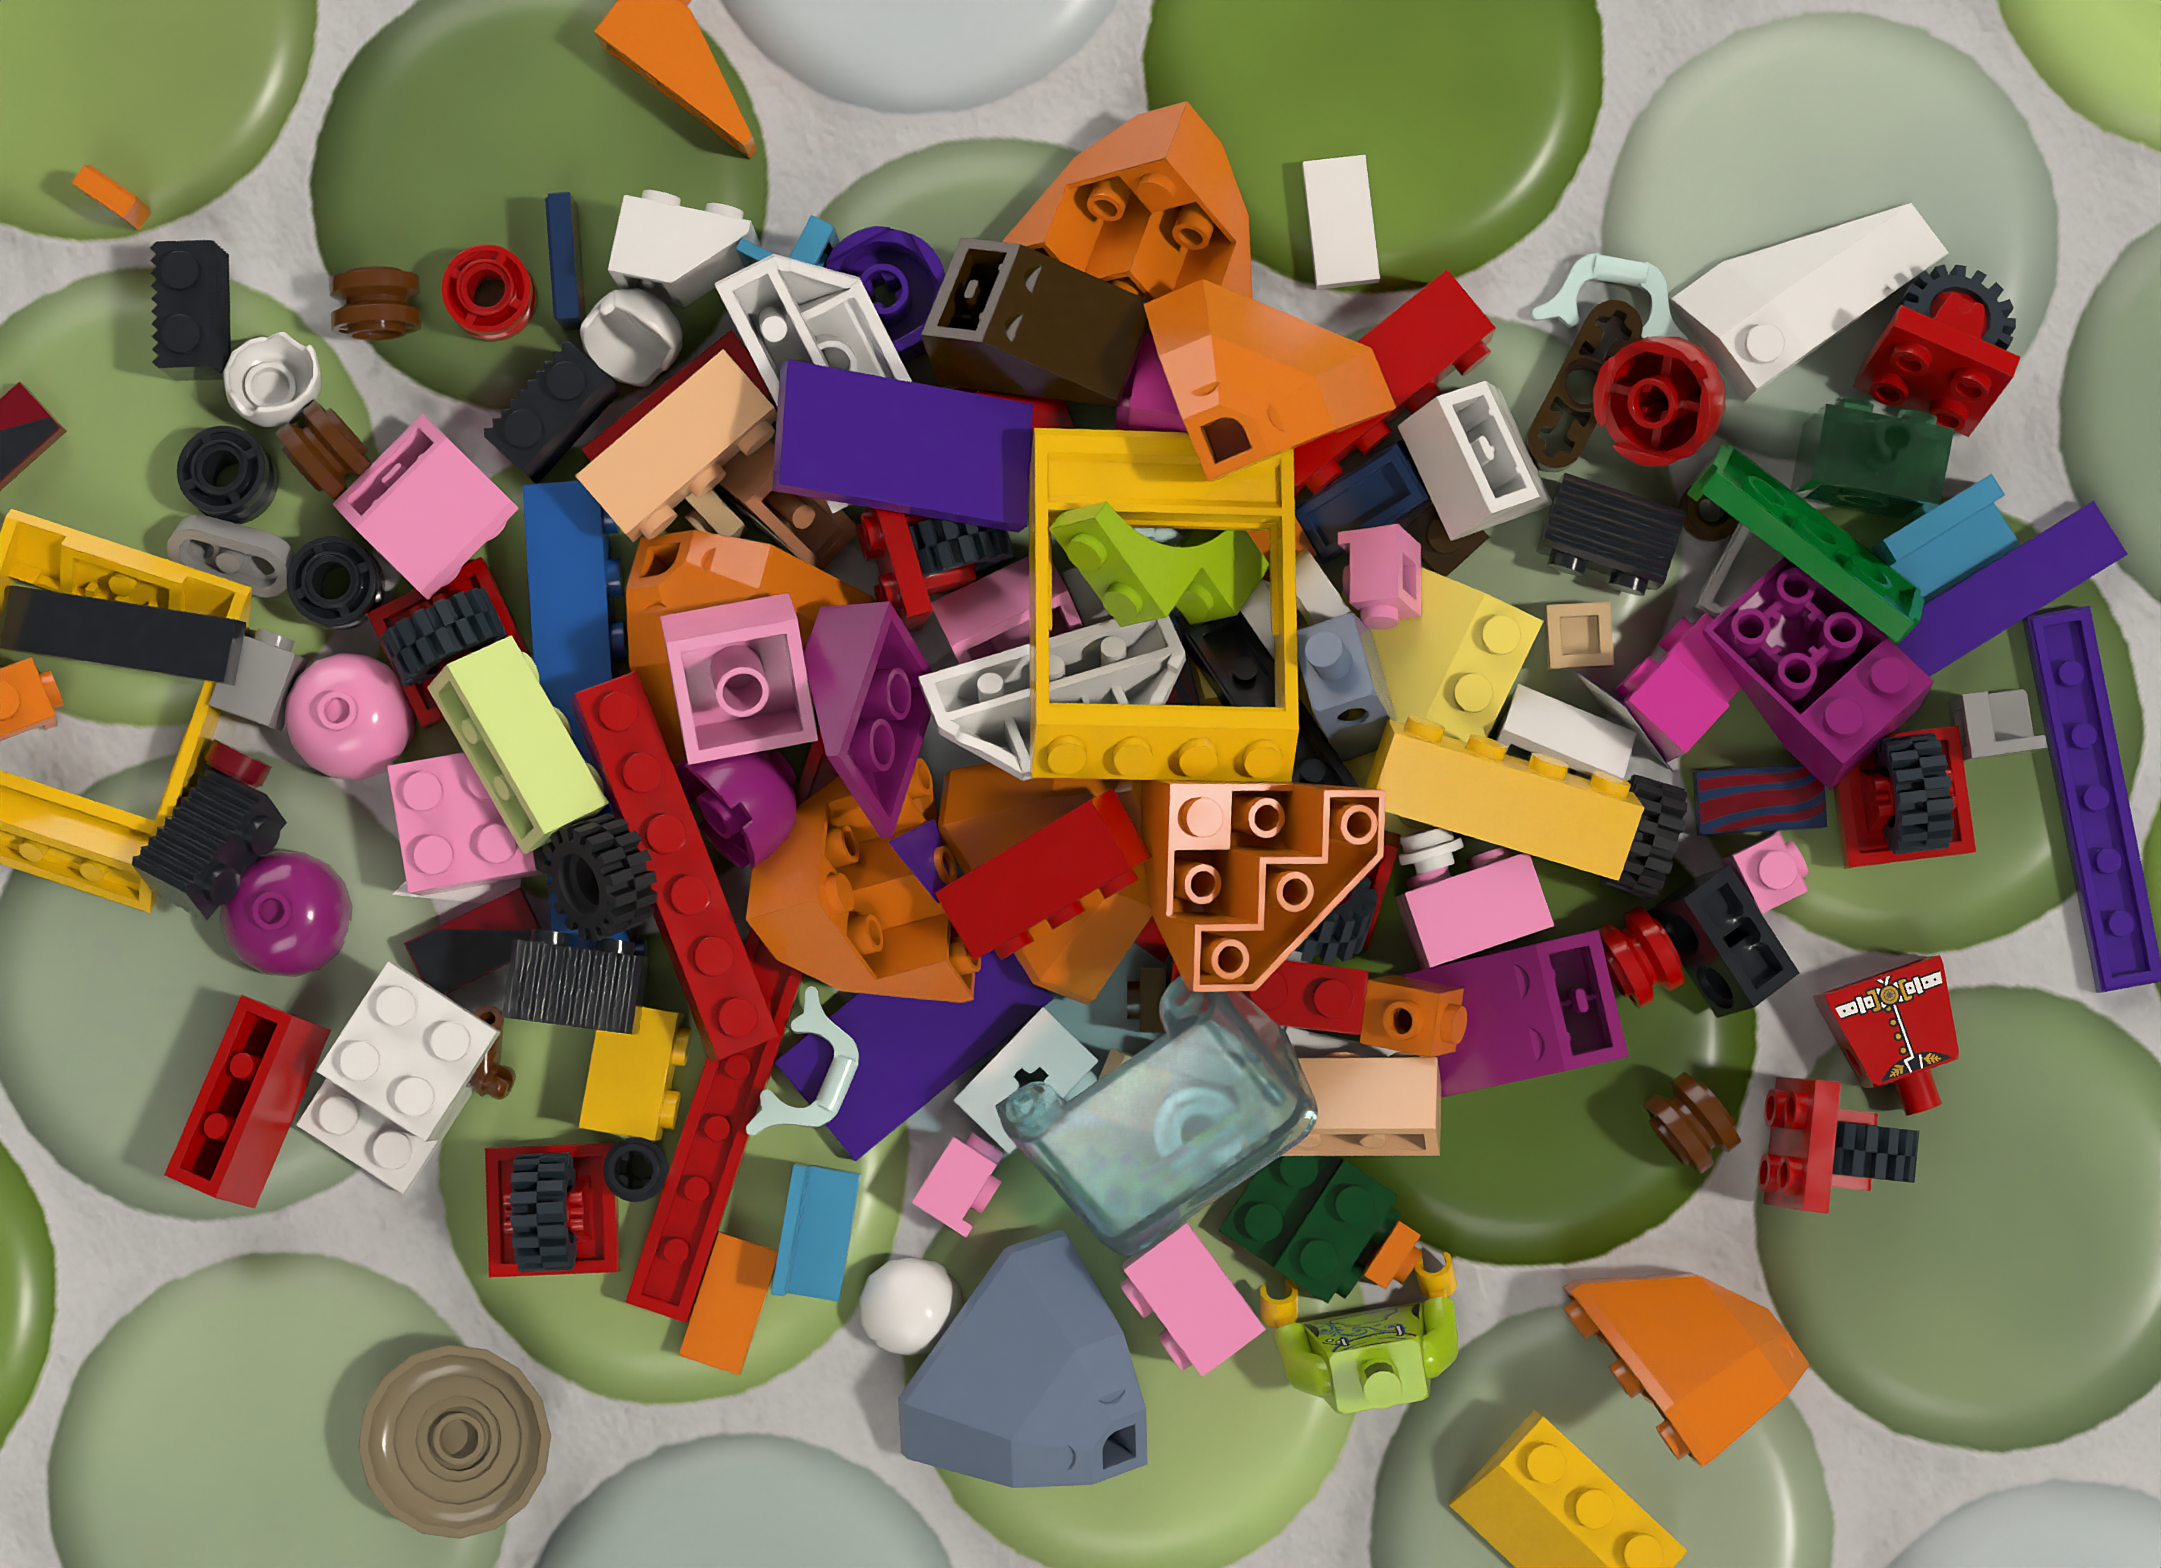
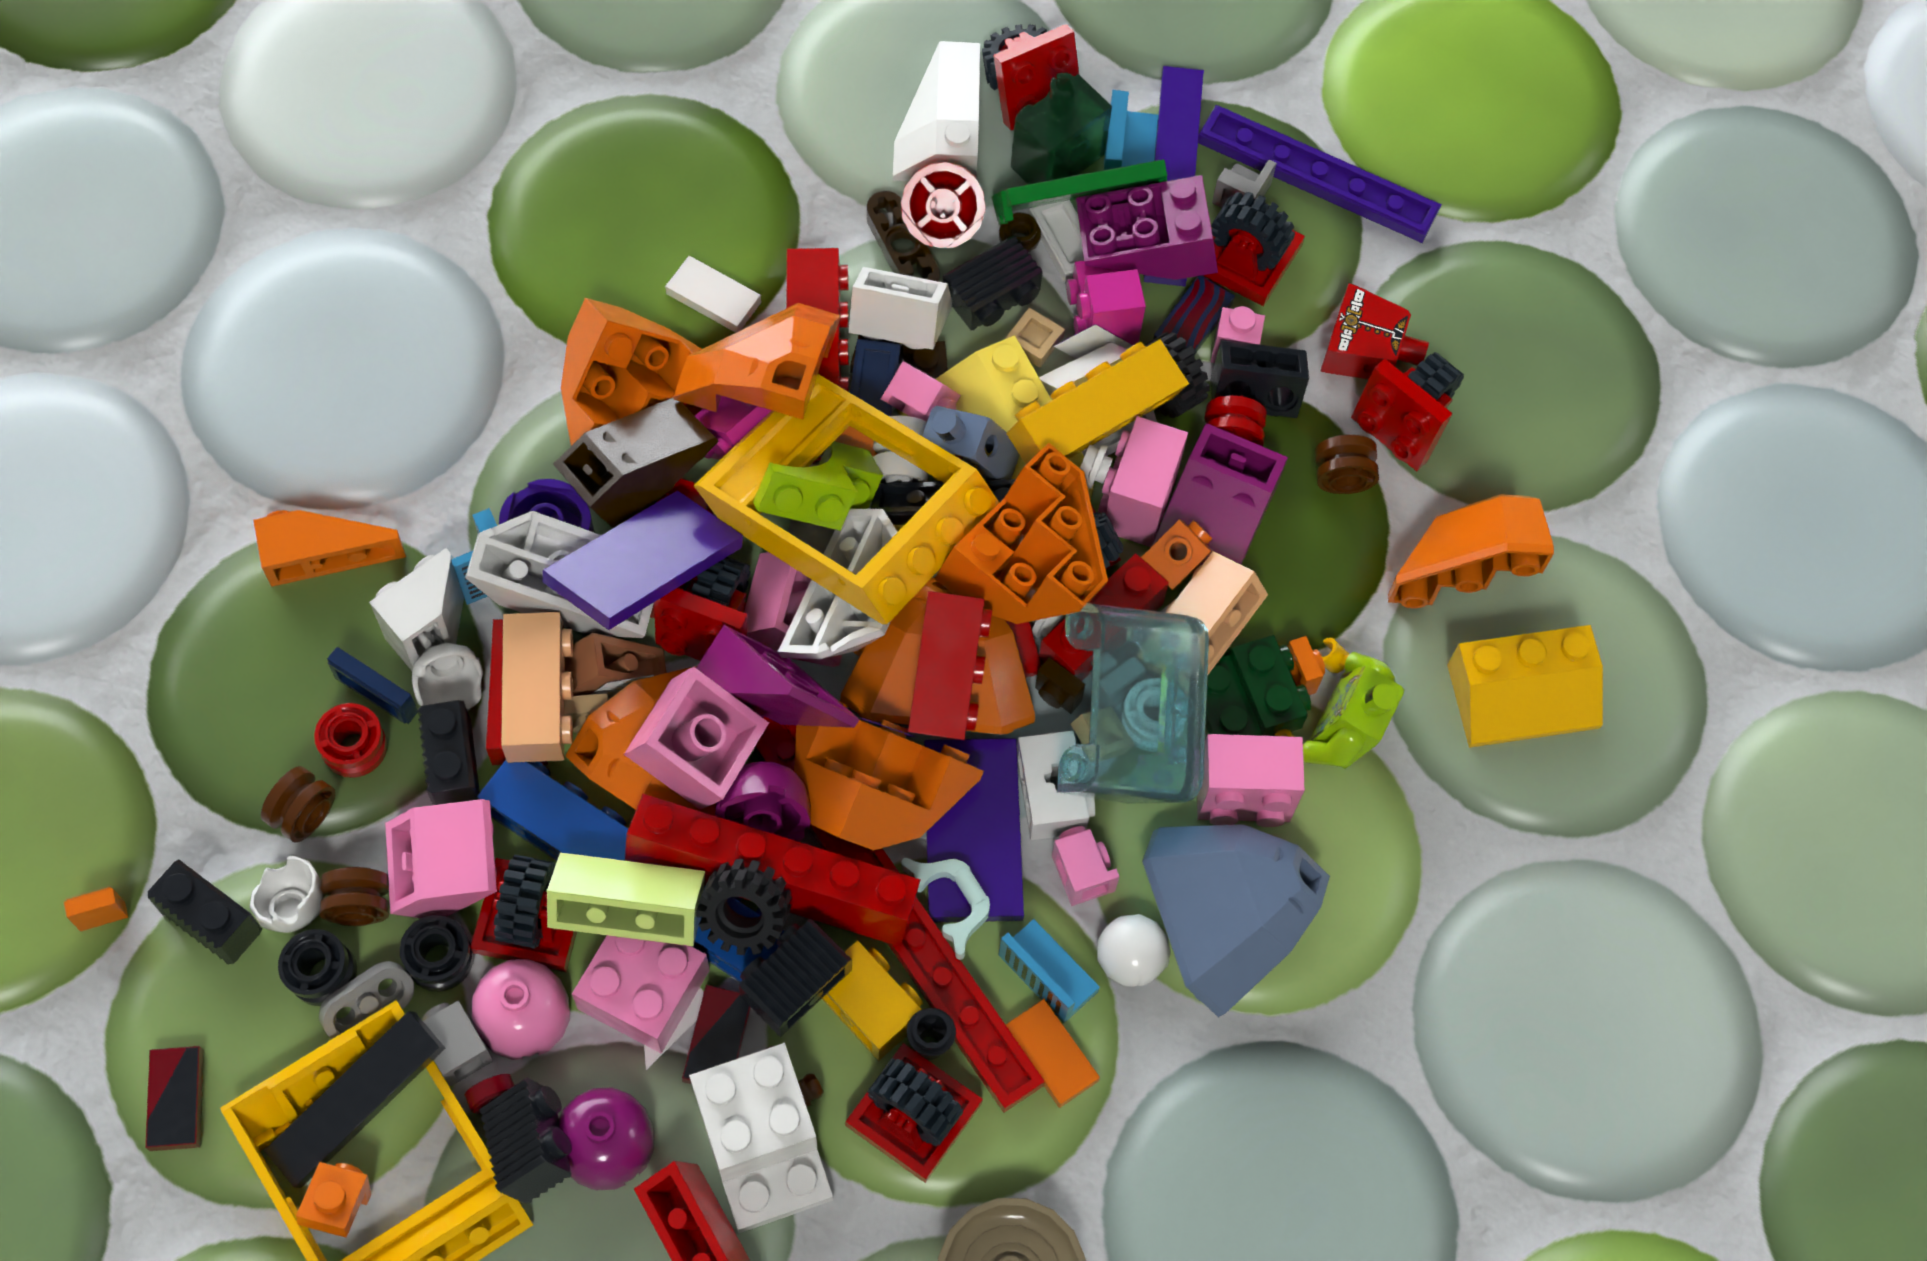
camera: 60 degrees left, 20 degrees down
(1615, 270) = (844, 197): light aqua helmet -> none

